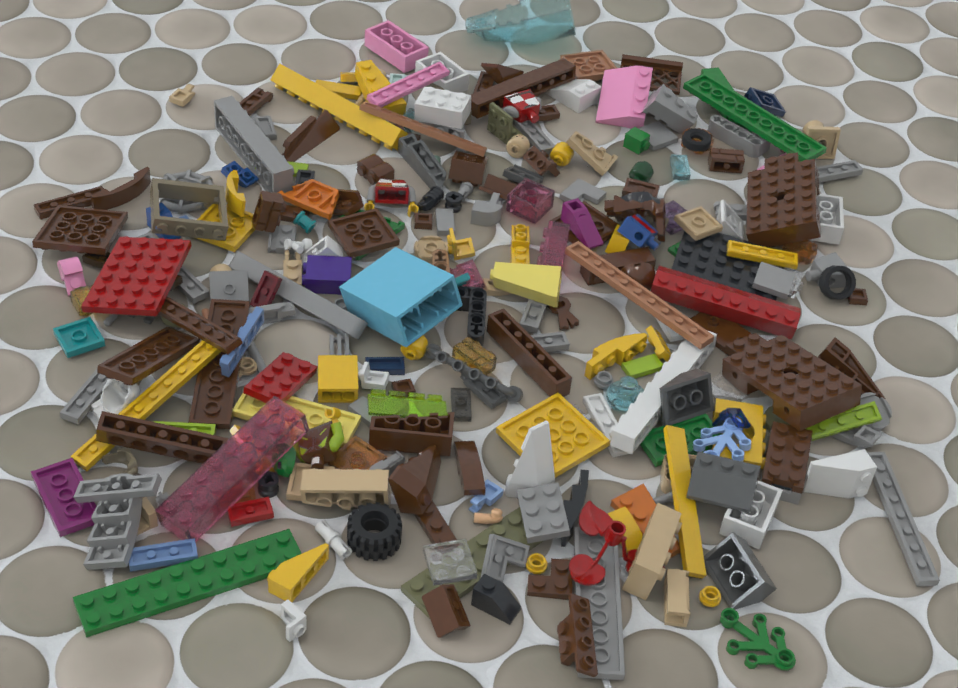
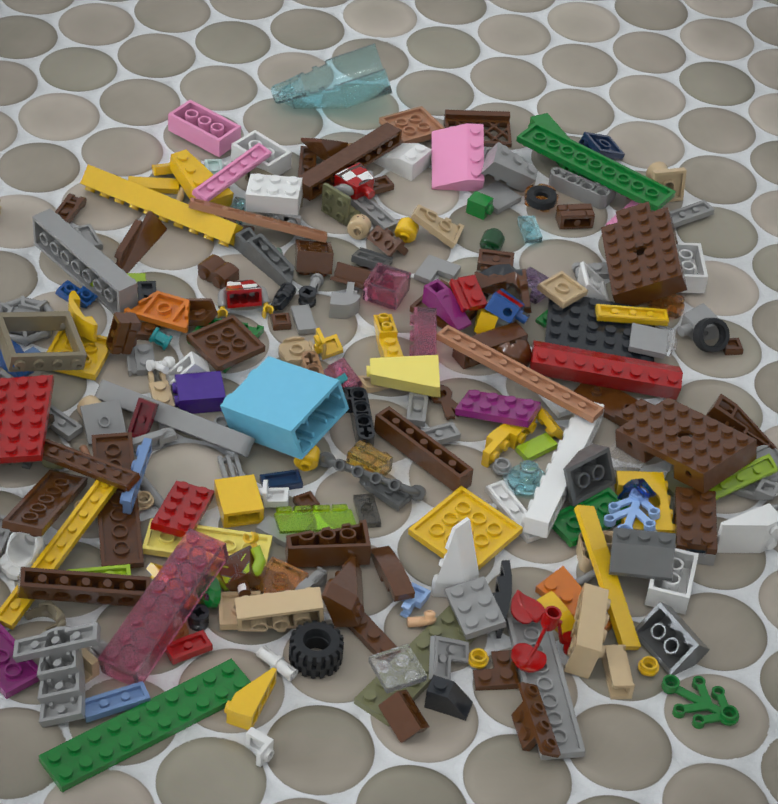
camera: 10 degrees left, 0 degrees up
(604, 214) = (468, 293): none -> red plate
(611, 324) = (498, 408): none -> magenta plate

